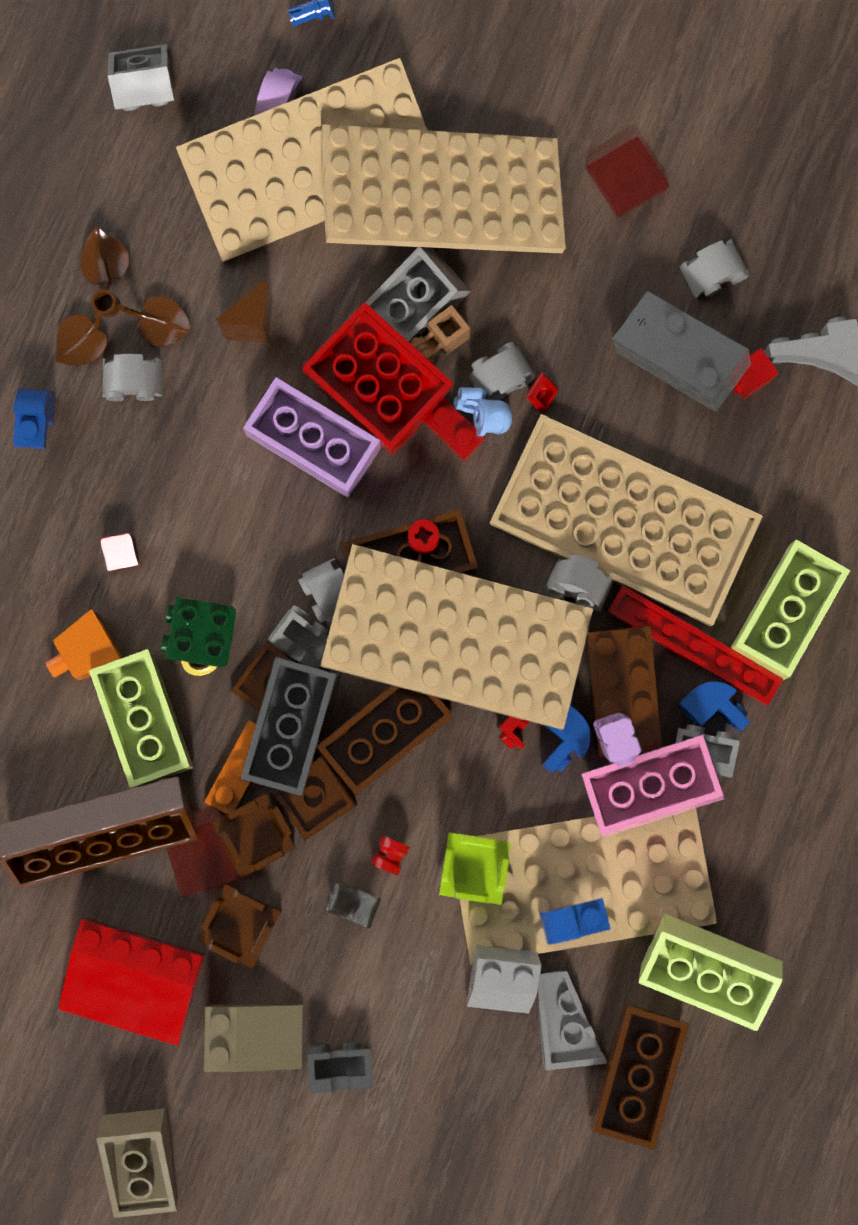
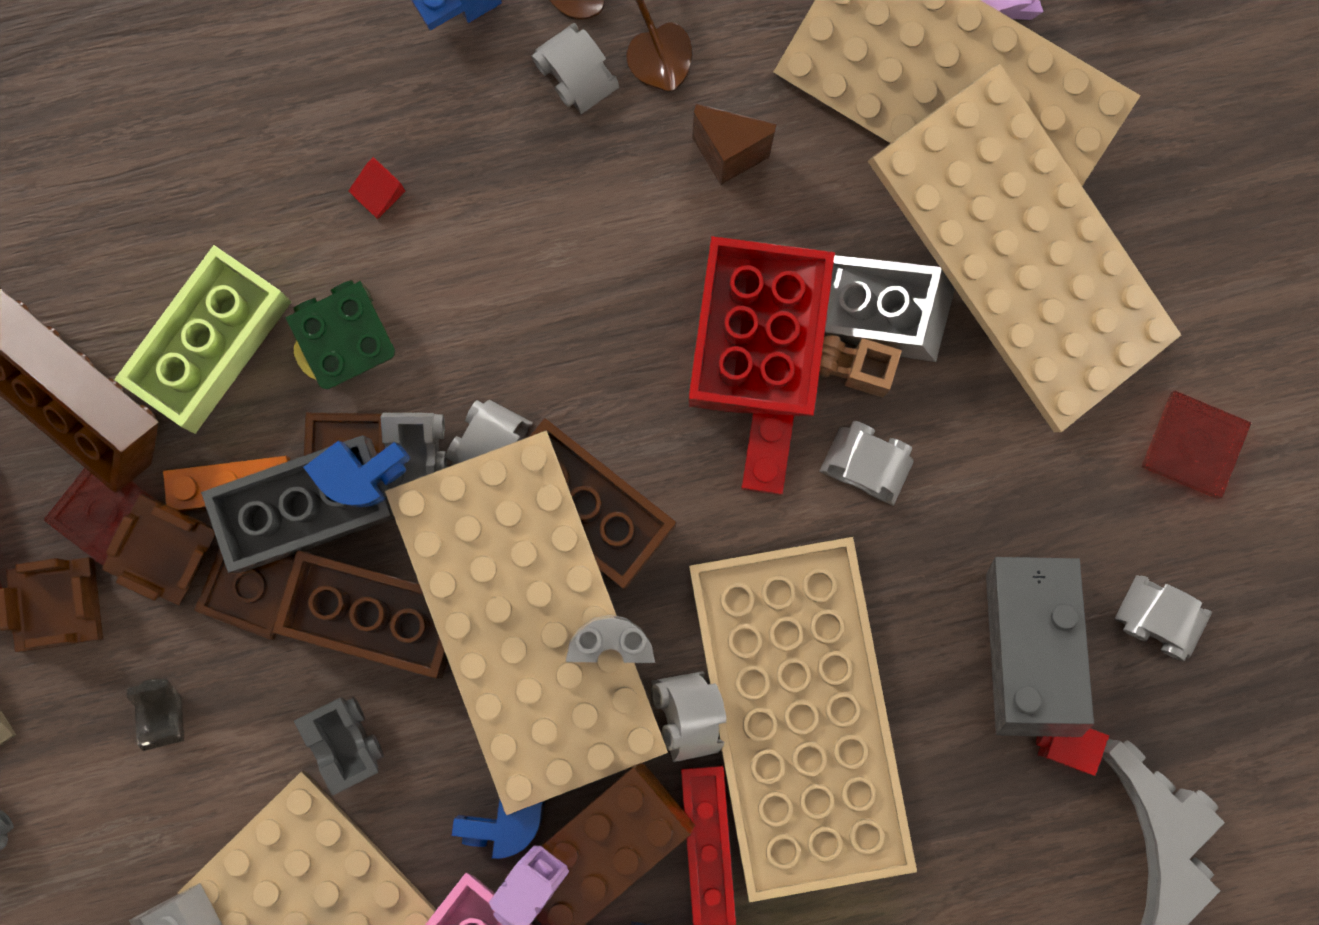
camera: 55 degrees right, 0 degrees up
(83, 647) = (244, 225): orange torso -> none
(300, 682) = (351, 483): none -> blue brick
(312, 437) = (644, 304): lavender brick -> none
(390, 855) = (239, 716): red wheel -> none
(425, 541) = (609, 509): red wheel -> none
(450, 805) = (340, 743): none -> dark grey cylinder
(475, 868) = (282, 823): lime panel -> none
(488, 415) = (810, 479): light blue piece -> none
(500, 589) = (610, 633): none -> light grey cylinder
(508, 736) = (462, 755): red bracket -> none
(542, 393) = (878, 521): red slope -> none

